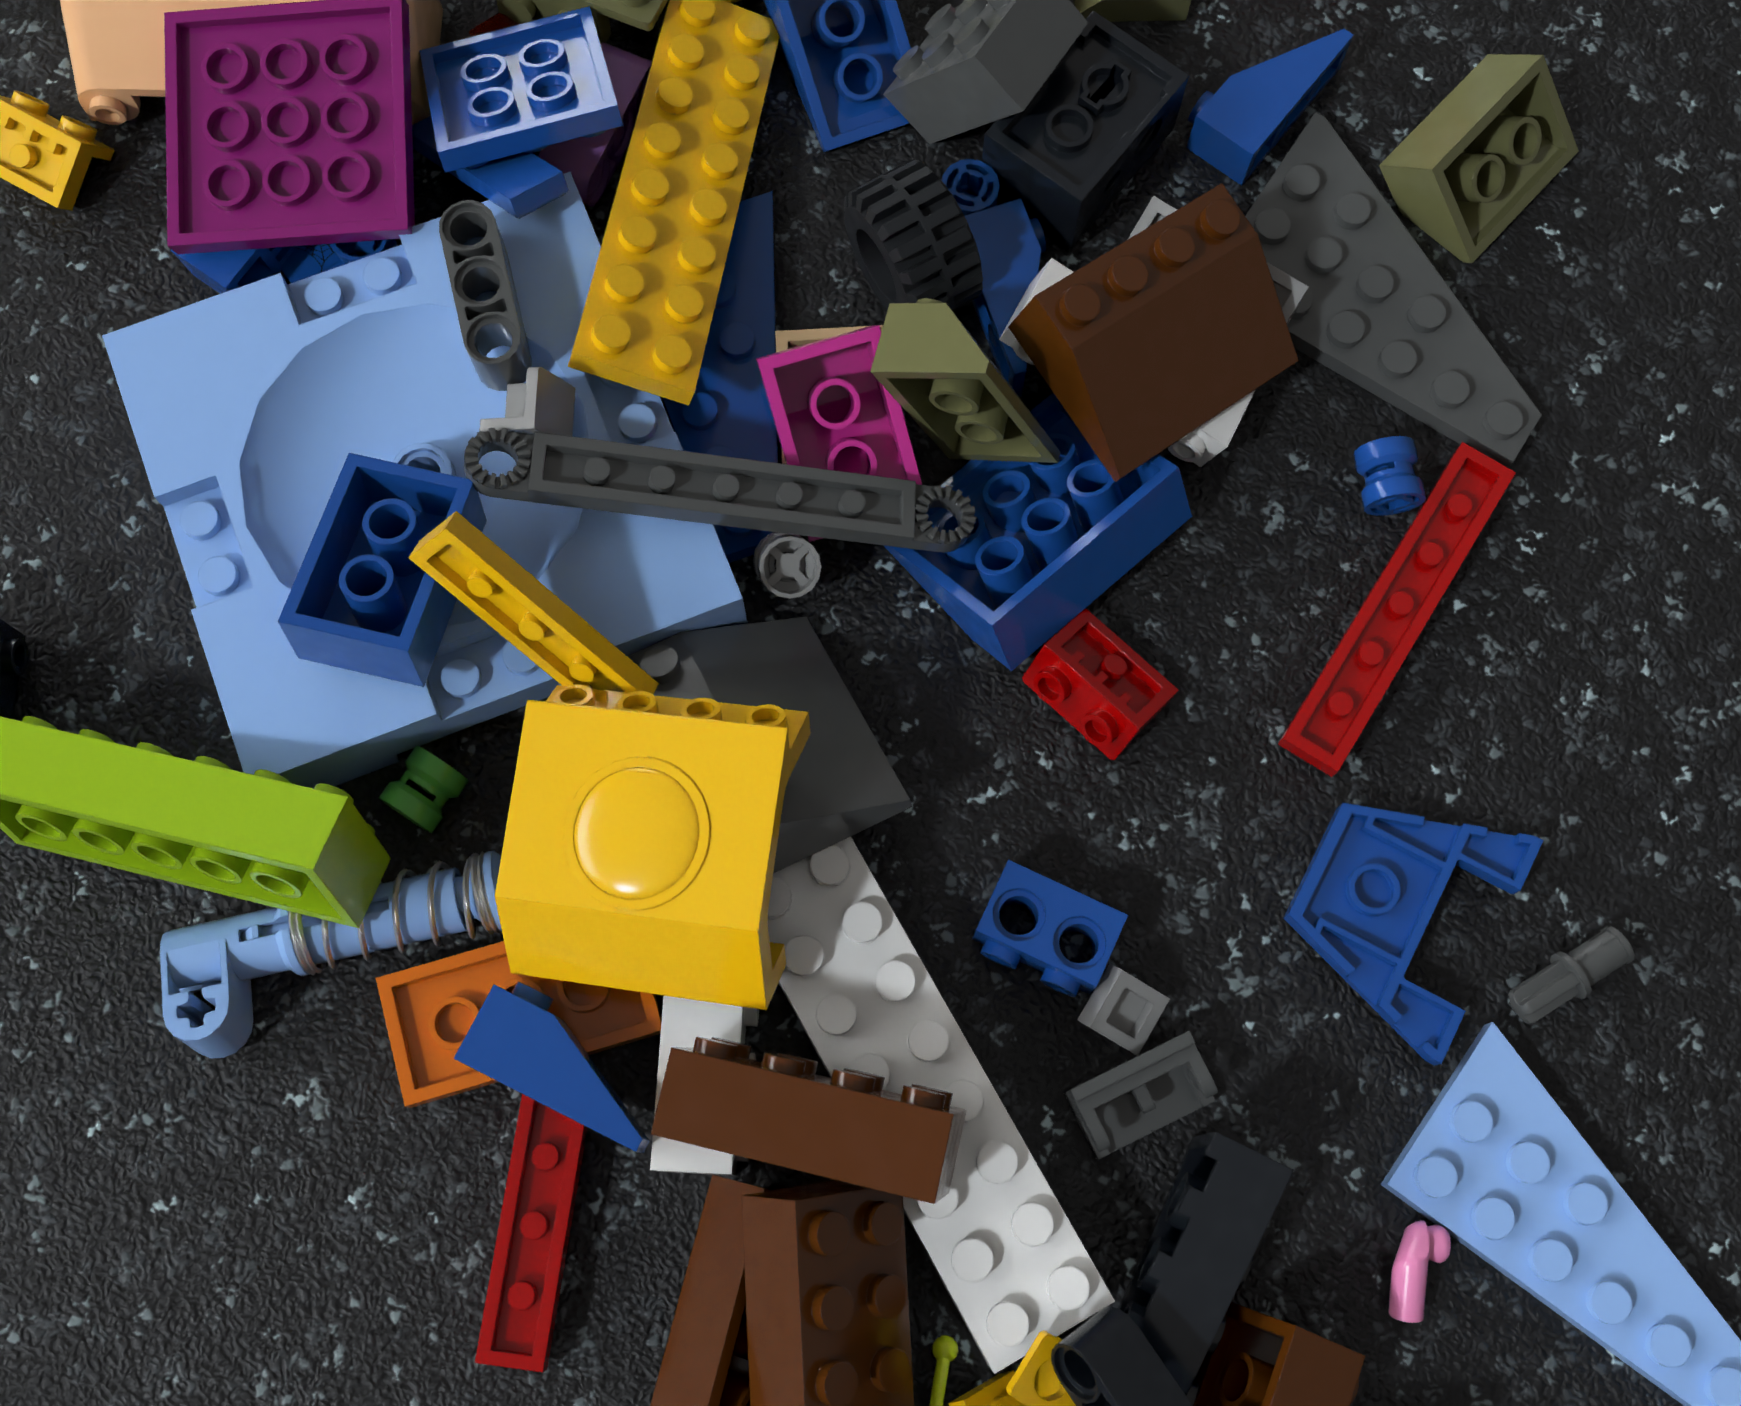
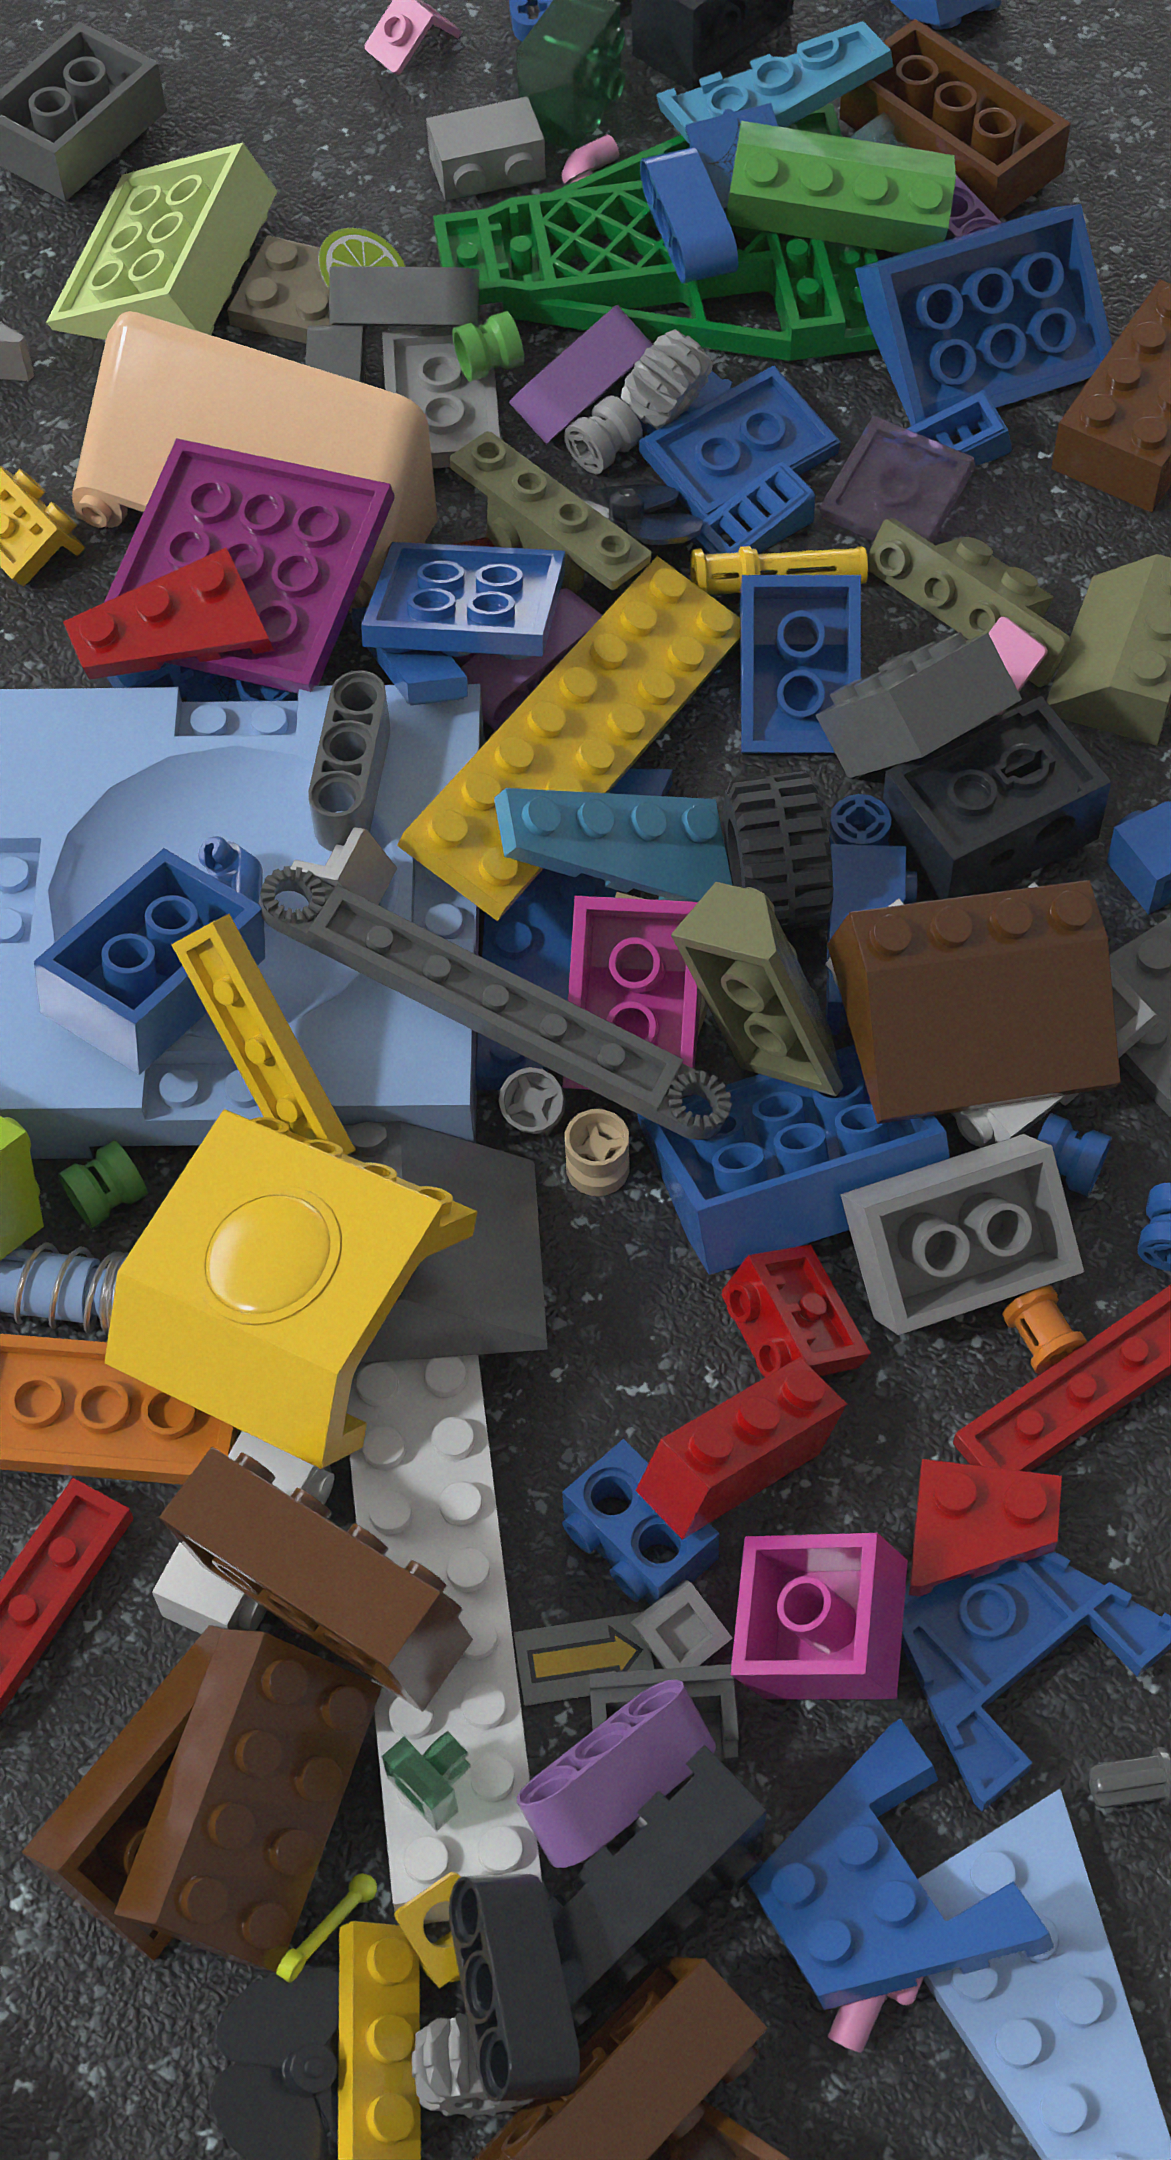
camera: 25 degrees right, 15 degrees down
(246, 202) = (174, 617): none -> red wing
(420, 442) = (232, 866): none -> blue arm
(541, 1058) = (92, 1443): blue slope -> none
(769, 283) = (626, 839): none -> dark azure wing
(860, 578) = (597, 1137): none -> tan wheel
(986, 1261) = (428, 1777): none -> clear green tile
(1045, 1061) = (559, 1658): none -> sticker
(1117, 831) = (740, 1447): none -> red brick
(1136, 1176) = (613, 1773): none -> medium lavender beam
(1223, 554) = (962, 1233): none -> light grey brick
(1245, 958) = (820, 1617): none -> dark pink brick
(1270, 441) = (1076, 1156): none -> blue wheel
(1316, 611) = (1043, 1327): none -> orange bush
(1338, 814) = (978, 1520): none -> red wing
(1375, 1200) = (855, 1906): none -> blue wing

